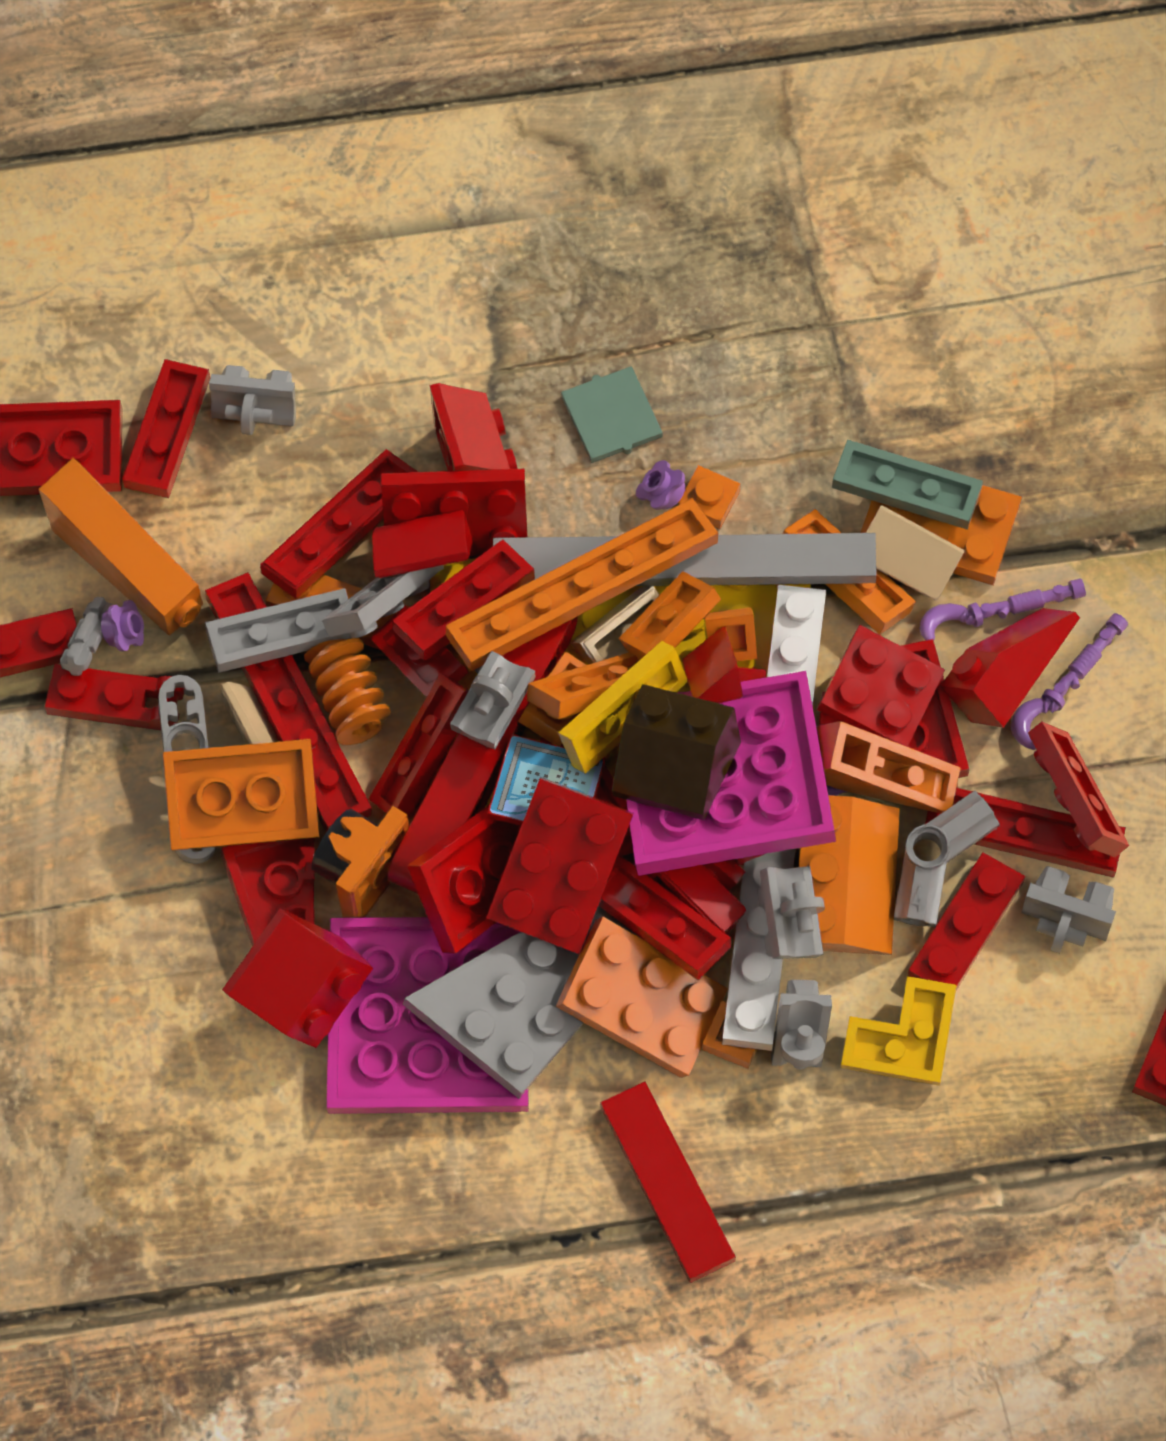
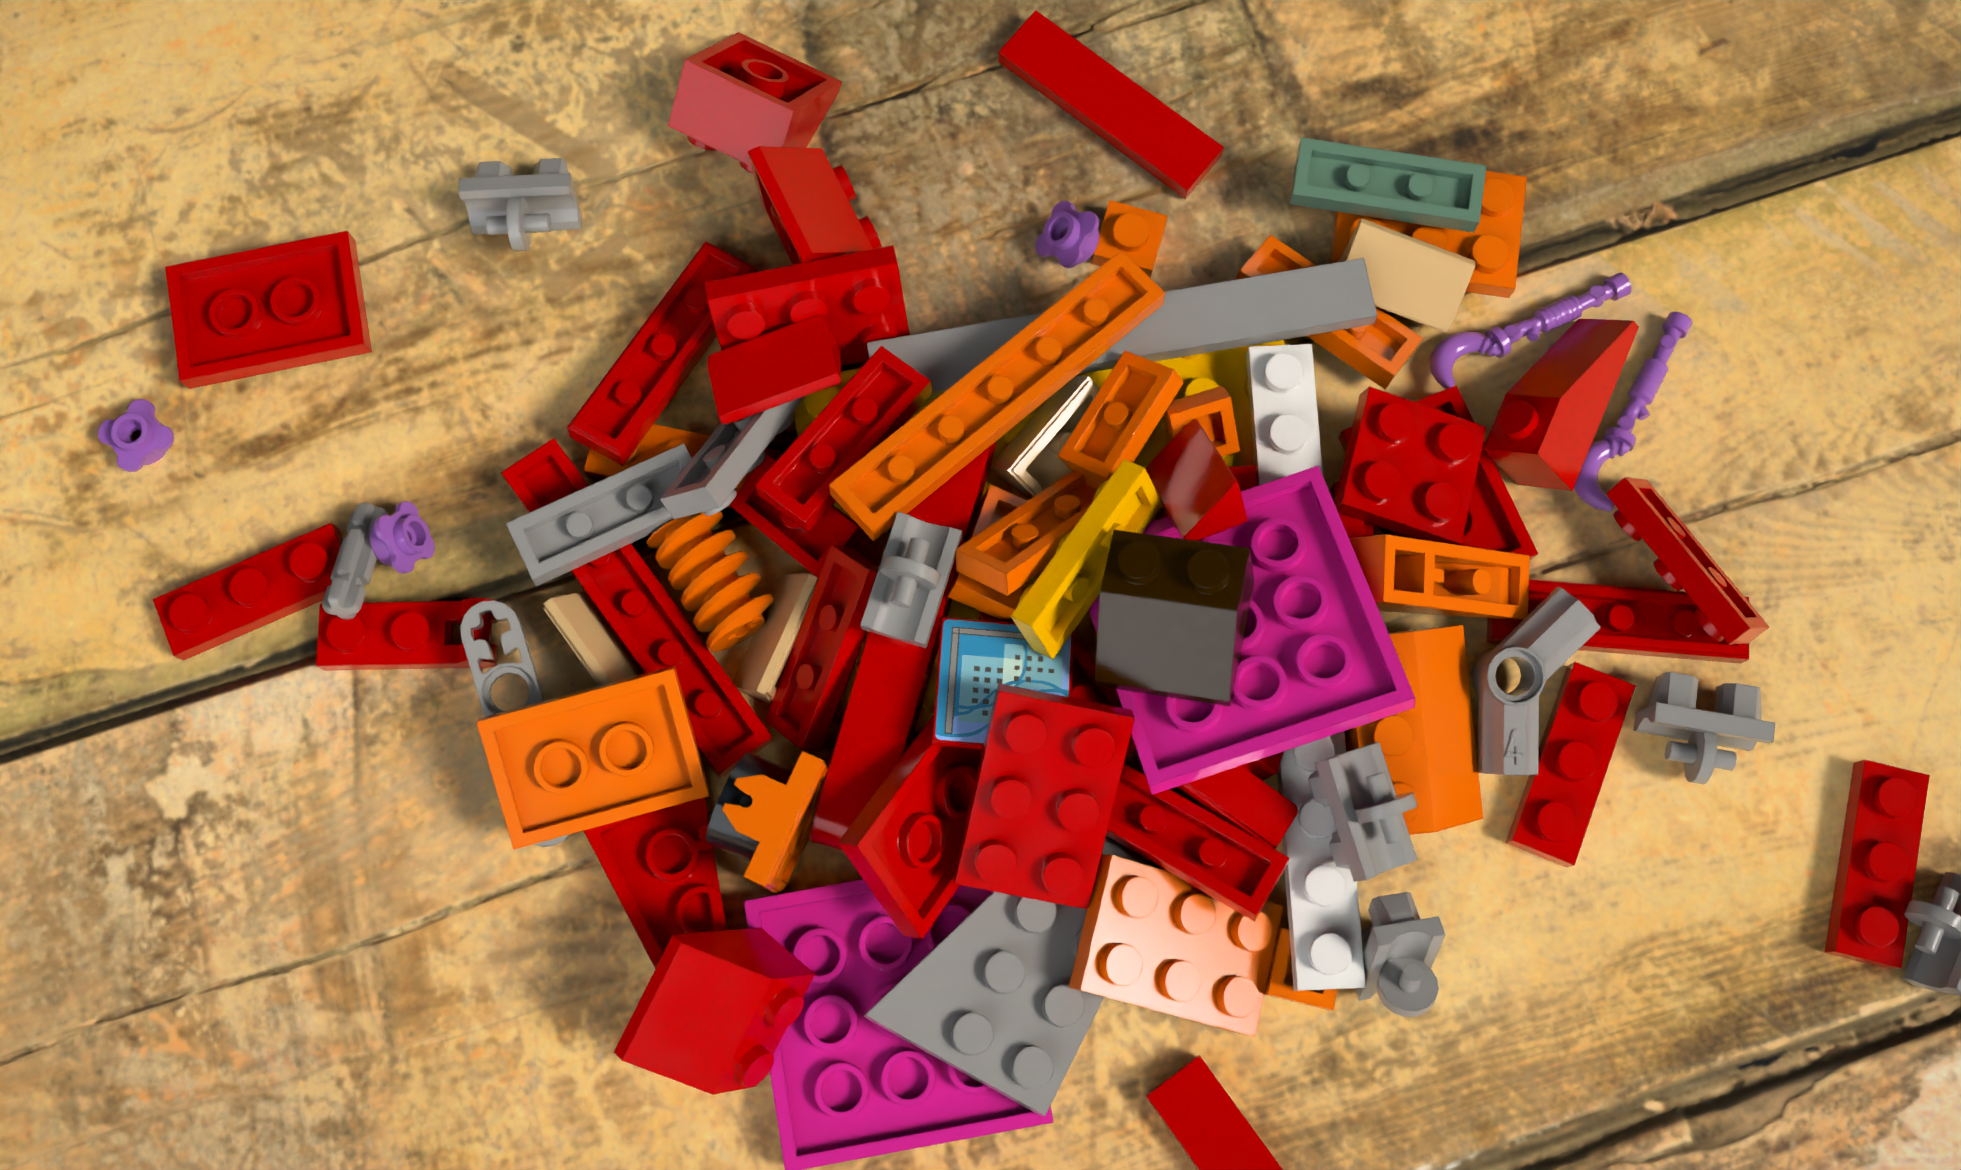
camera: 10 degrees left, 10 degrees up
(119, 548) = (376, 432): orange slope -> none
(166, 428) = (415, 259): red plate -> none
(381, 748) = (772, 644): none -> tan slope
(439, 346) = (749, 97): none -> red slope
(611, 414) = (985, 149): sand green piece -> none
(714, 395) = (1110, 104): none -> red tile
(912, 1048) = (1542, 947): yellow plate -> none

